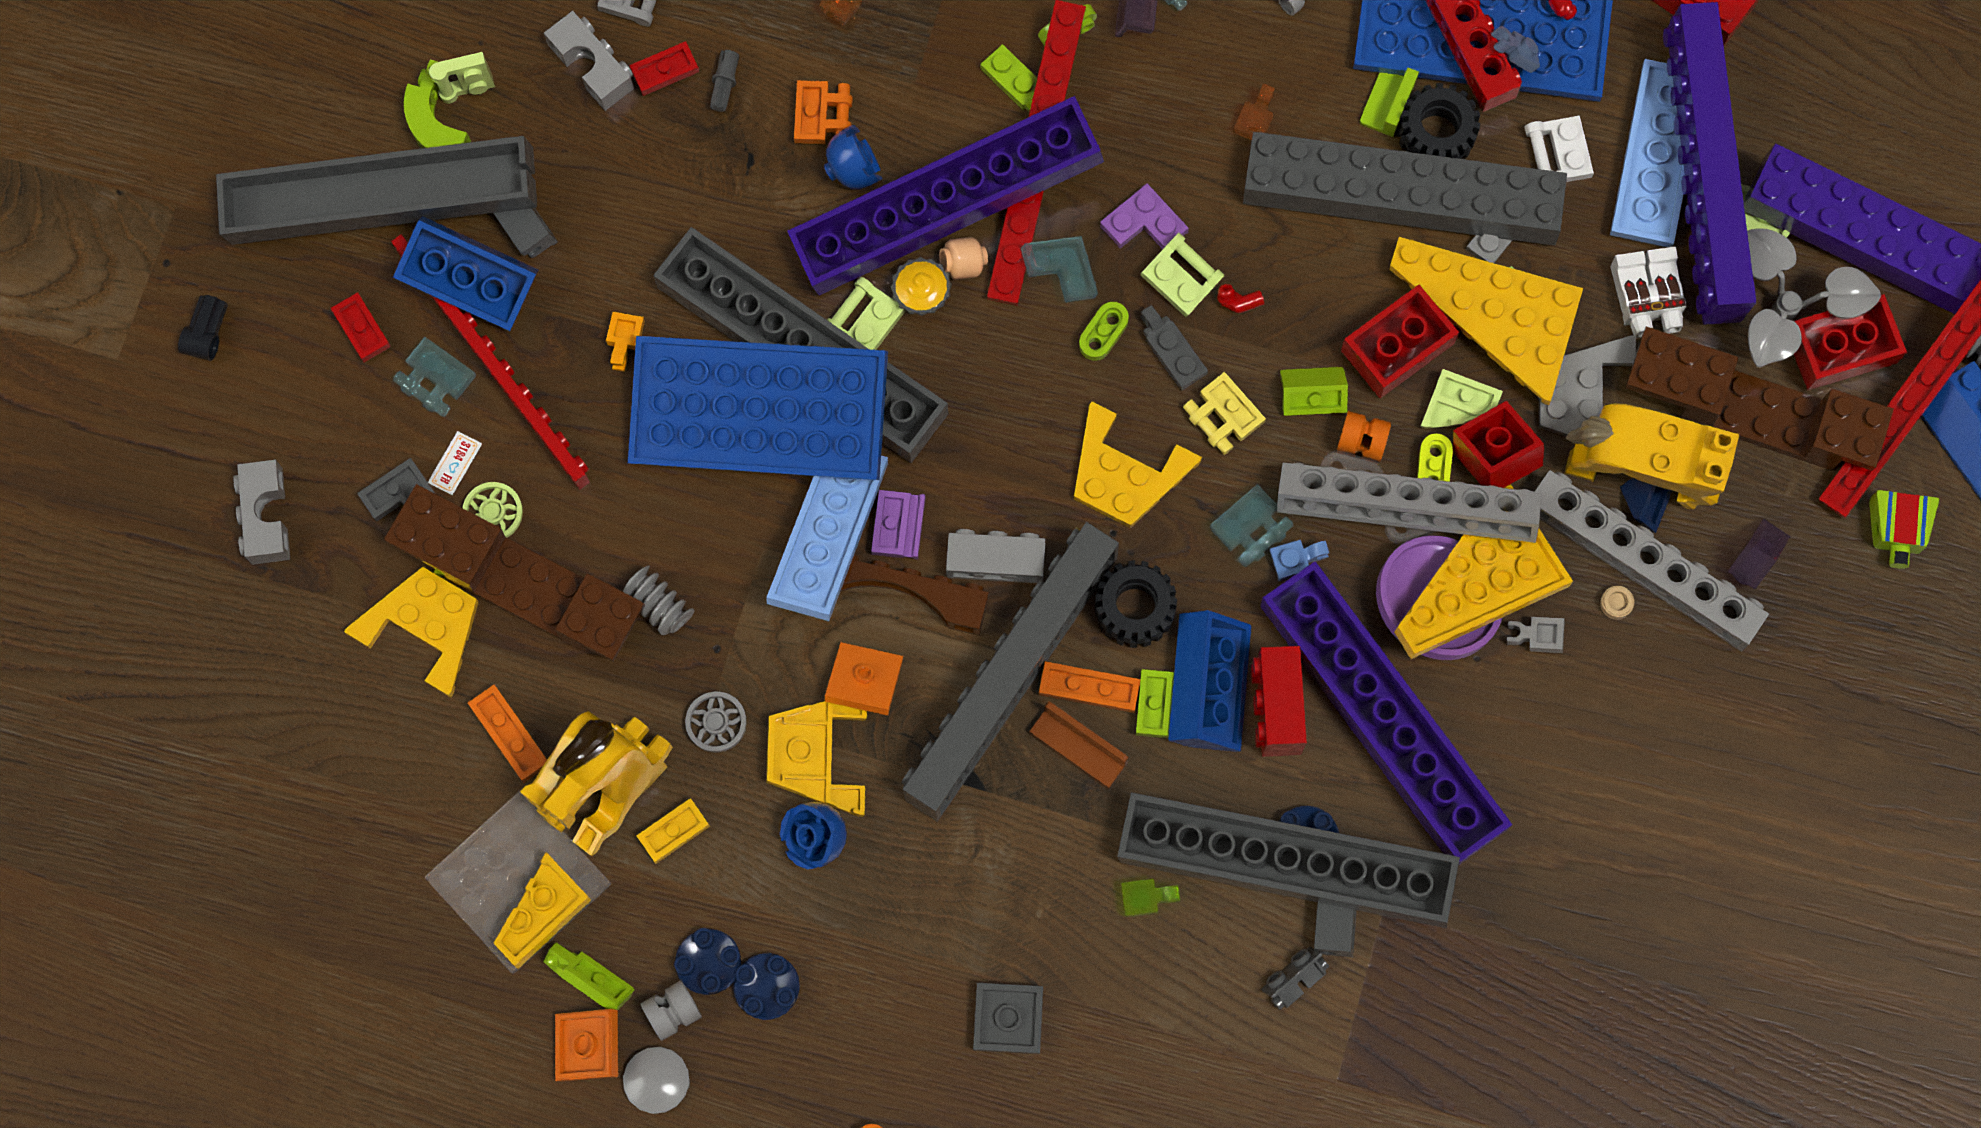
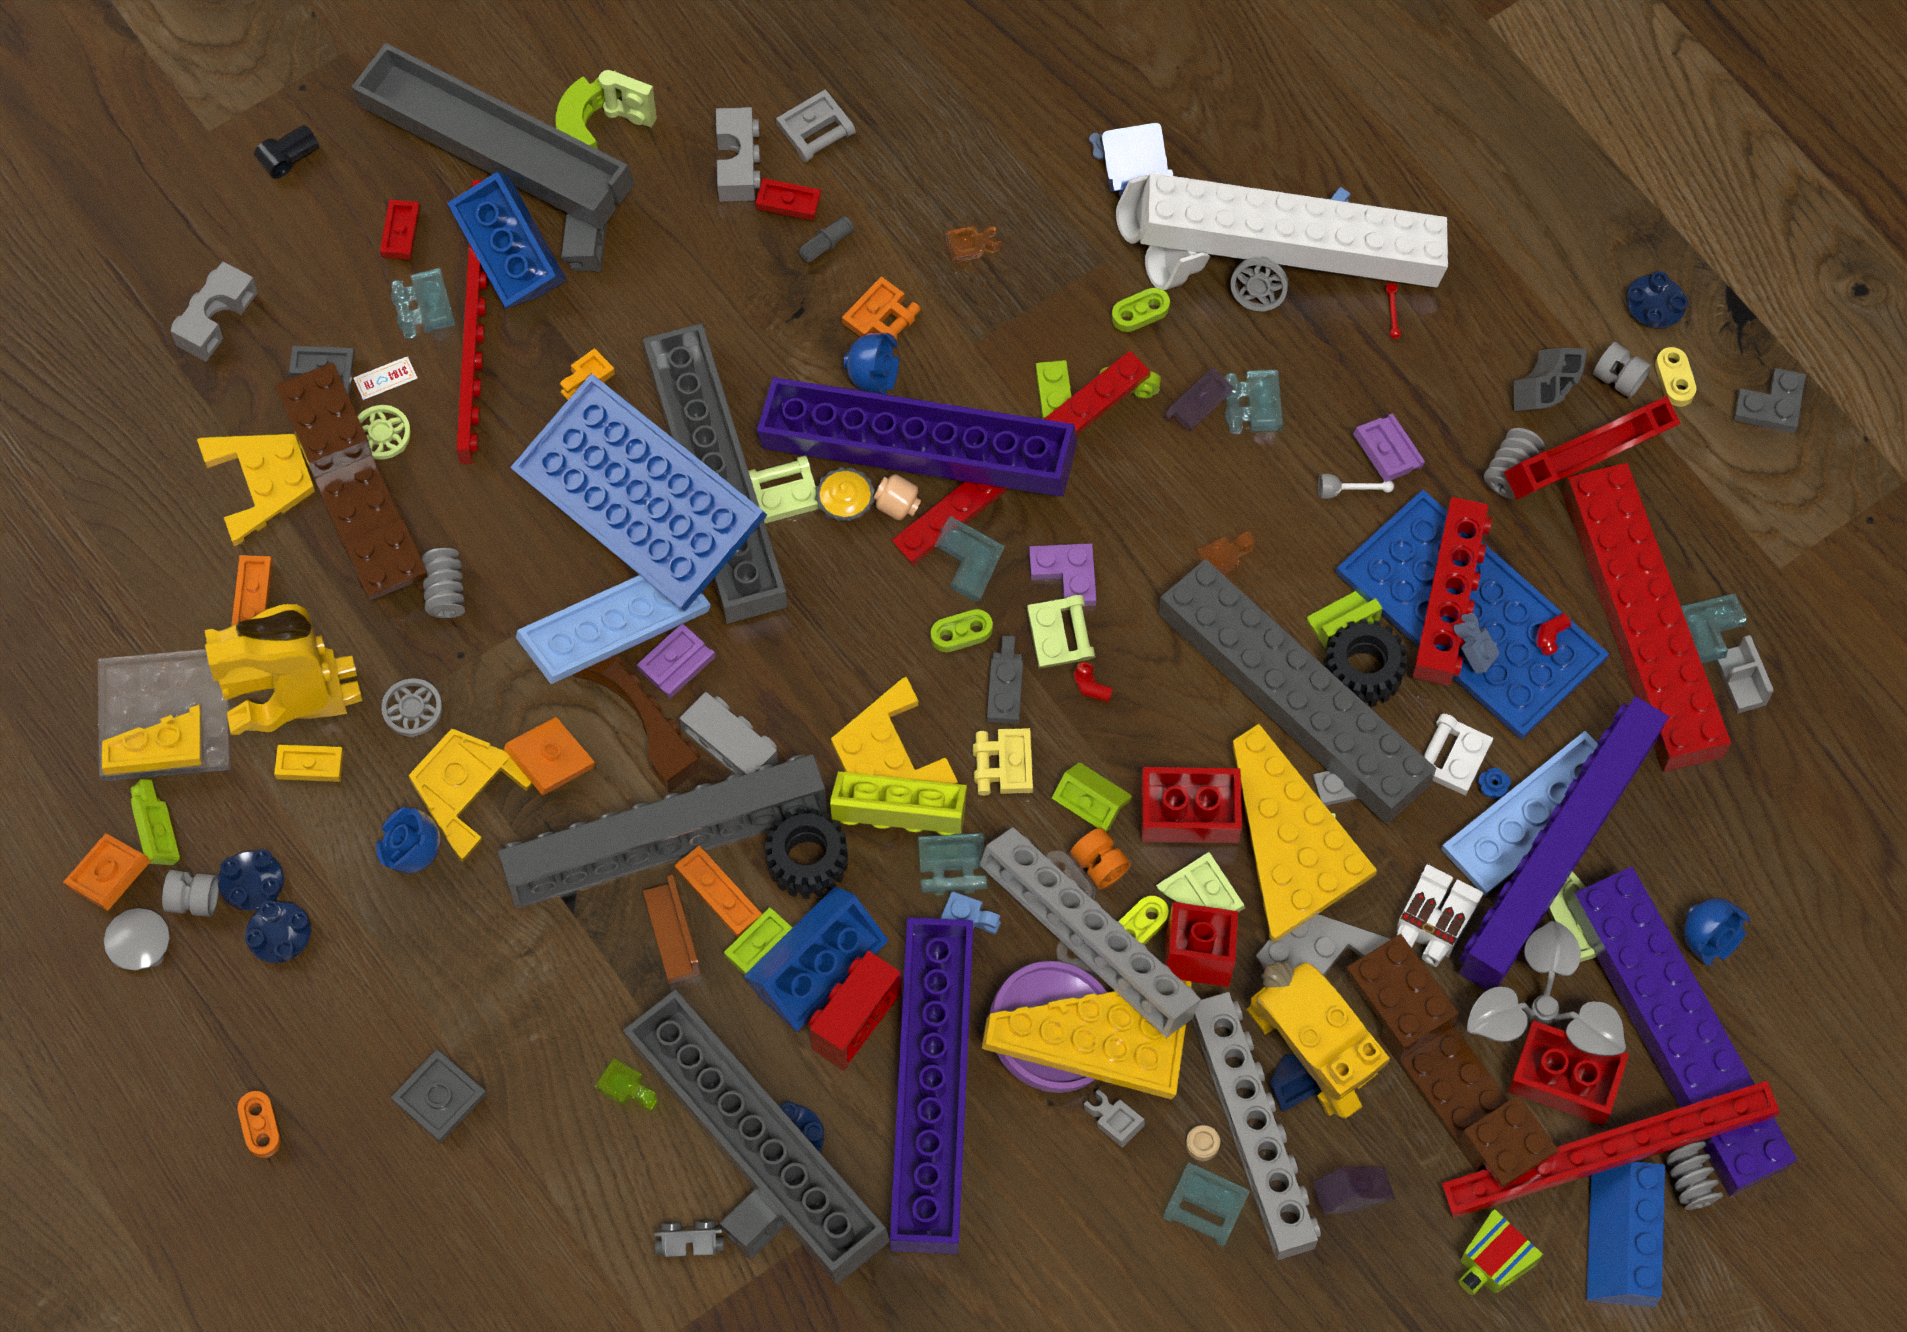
camera: 35 degrees right, 10 degrees down
(1176, 508) = (898, 803): none -> neon yellow slope
(1607, 159) = (1494, 791): none -> blue plate
(1656, 638) = (1210, 1194): none -> clear light blue plate
(1860, 147) = (1714, 929): none -> blue cylinder

